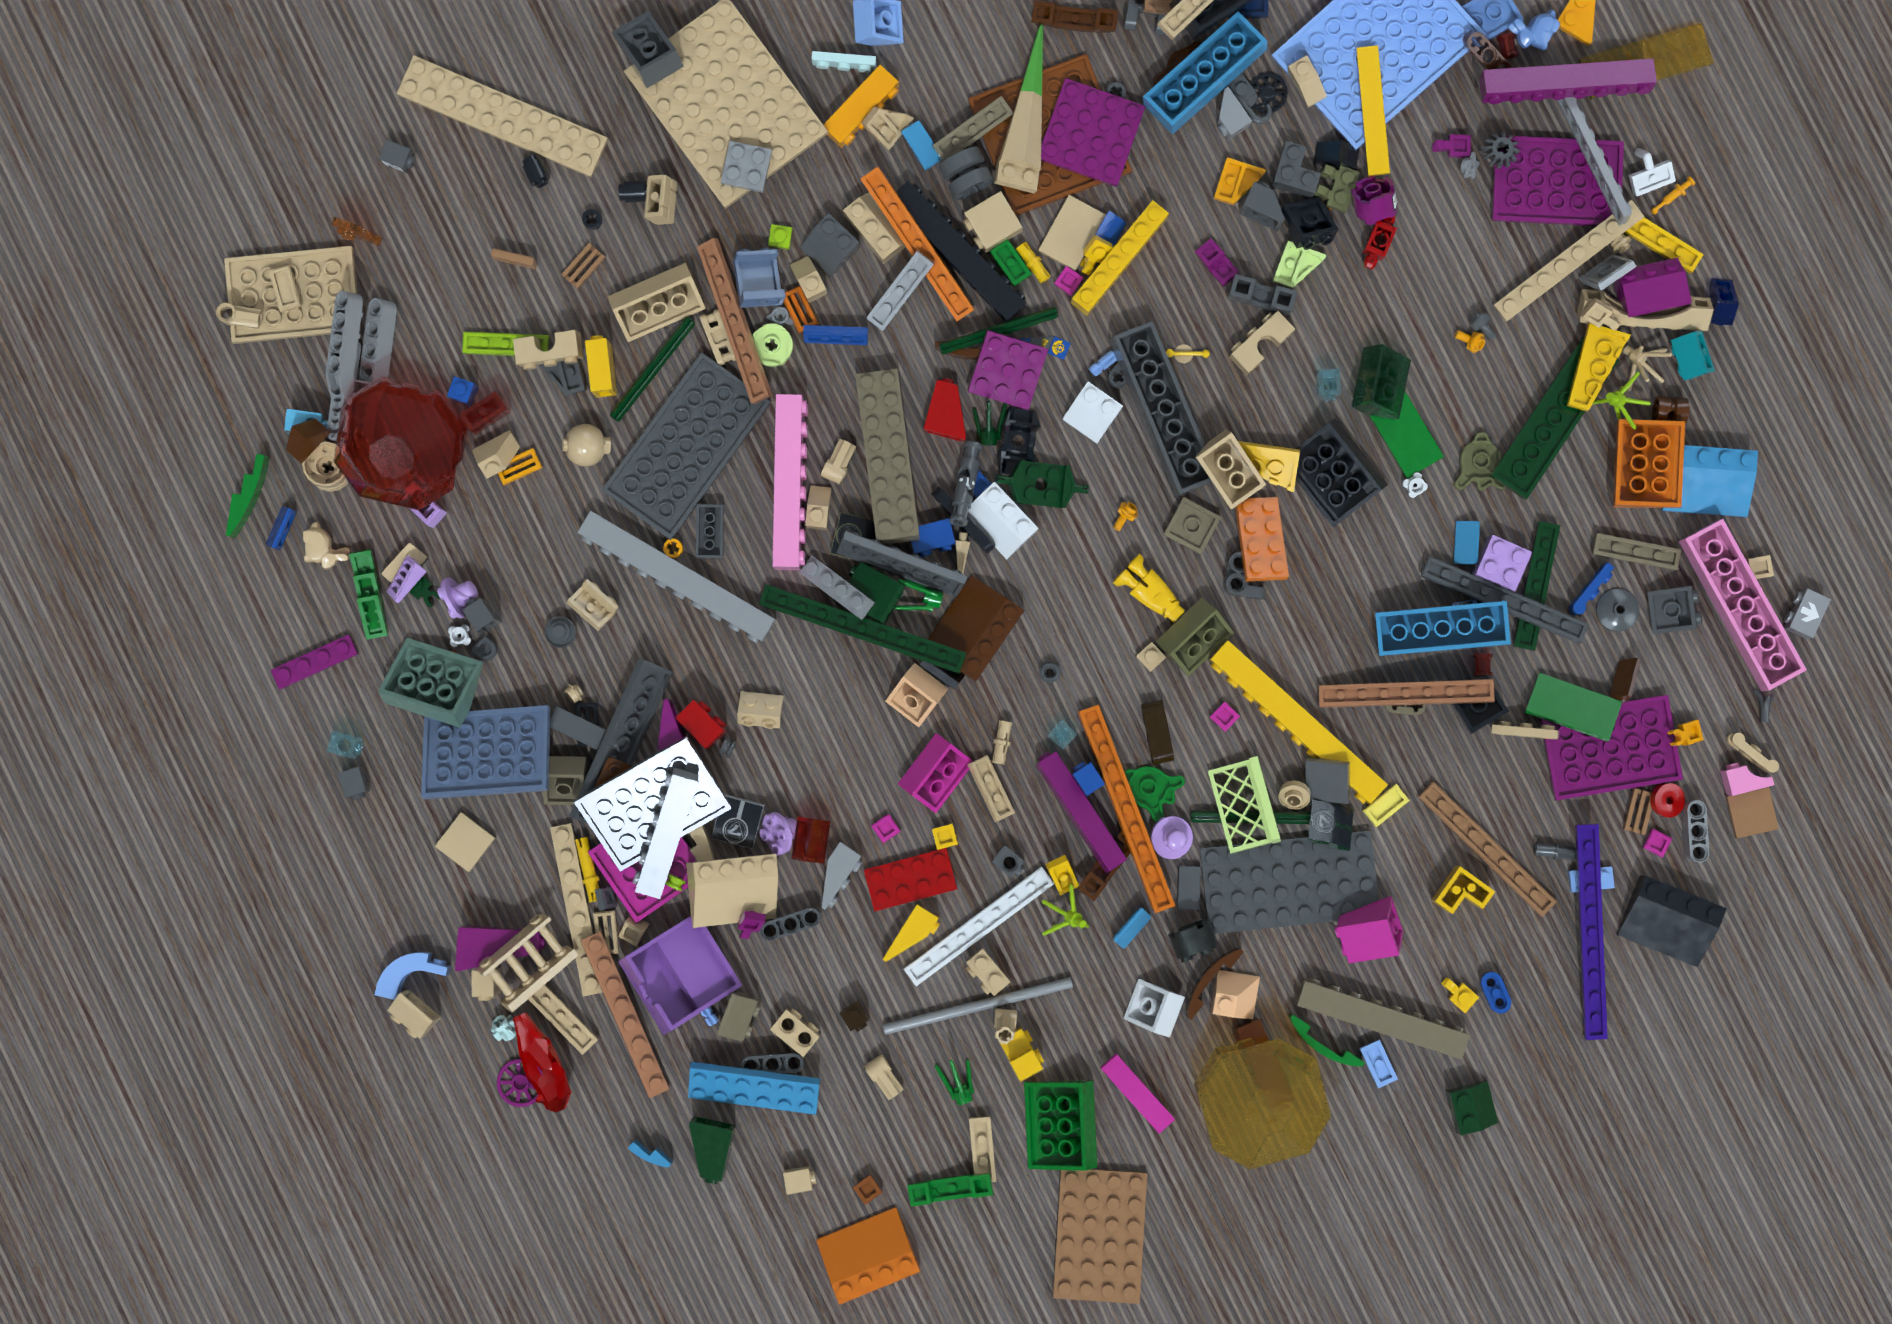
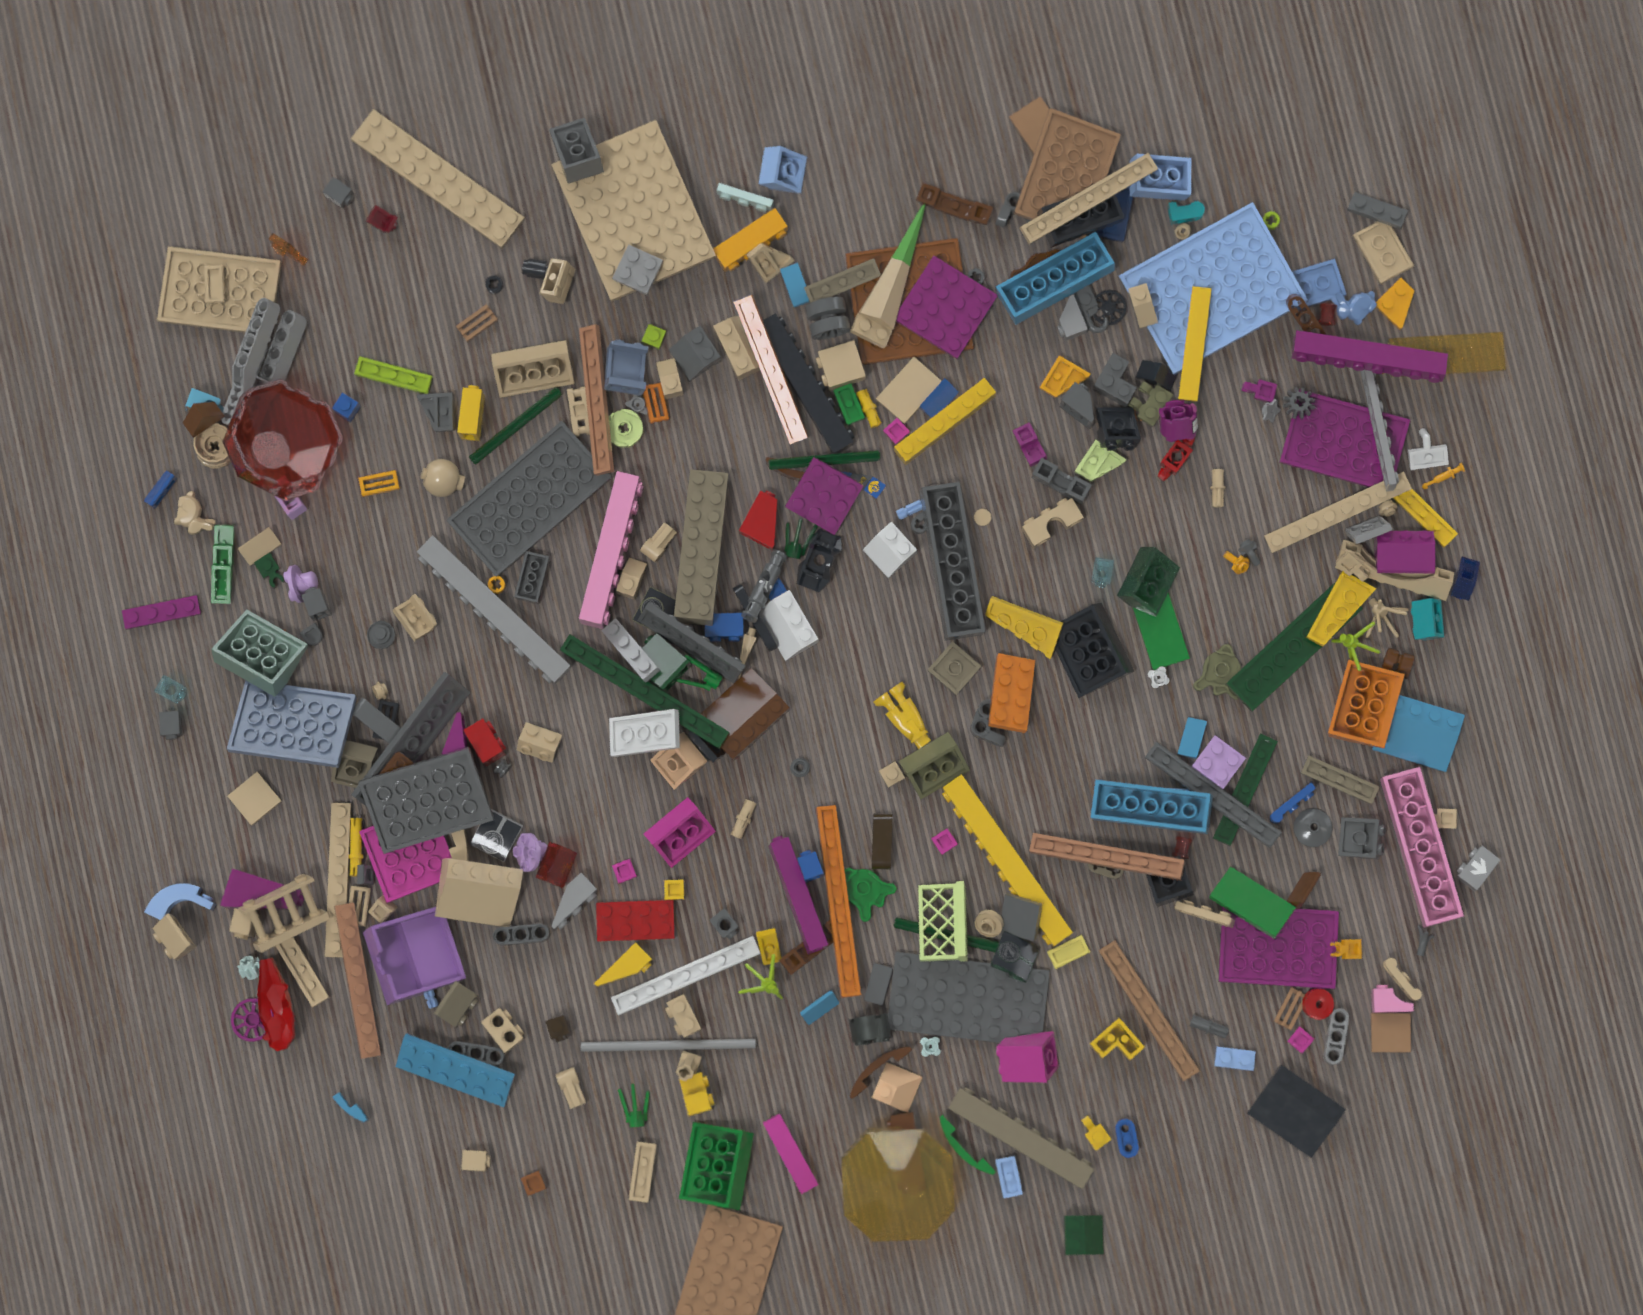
camera: 15 degrees right, 5 degrees down
(241, 315) = (171, 299): tan piece -> none
(243, 504) = (133, 461): green slope -> none
(405, 579) = (258, 557): lavender slope -> none
(452, 175) = (381, 219): none -> dark red bracket
(454, 631) = (292, 613): white plate -> none
(485, 413) = (361, 430): clear red brick -> none
(496, 454) = (362, 468): tan slope -> none
(514, 258) = (418, 303): medium nougat tile -> none
(535, 171) = (455, 232): black brick -> none
(566, 348) = (445, 390): tan arch -> none
(666, 833) = (431, 829): brick -> none
(675, 882) = (429, 874): lime bush -> none
(711, 1146) = (406, 1113): dark green slope -> none
(750, 922) = (486, 924): magenta plate -> none
(835, 335) = (681, 432): blue tile -> none
(868, 1255) = (520, 1241): orange slope -> none
(873, 674) = (644, 733): none -> white plate
(900, 290) = (746, 406): light grey plate -> none
(950, 1188) = (605, 1199): green slope -> none
(991, 788) = (724, 857): tan tile -> none
(1057, 479) = (845, 607): dark green plate -> none
(1062, 734) = (798, 824): clear light blue plate -> none
(1095, 252) = (924, 411): yellow plate -> none
(1127, 511) = (901, 643): light orange plate -> none
(1154, 1008) = (822, 1082): white slope -> none
(1170, 353) = (970, 514): yellow hinge -> none
(1171, 837) = (872, 936): lavender plate -> none
(1230, 469) = (996, 625): tan slope -> none
(1264, 936) = (926, 1050): none -> light aqua plate
(1431, 263) = (1217, 487): none -> tan axle
(1591, 931) = (1222, 1103): dark purple plate -> none

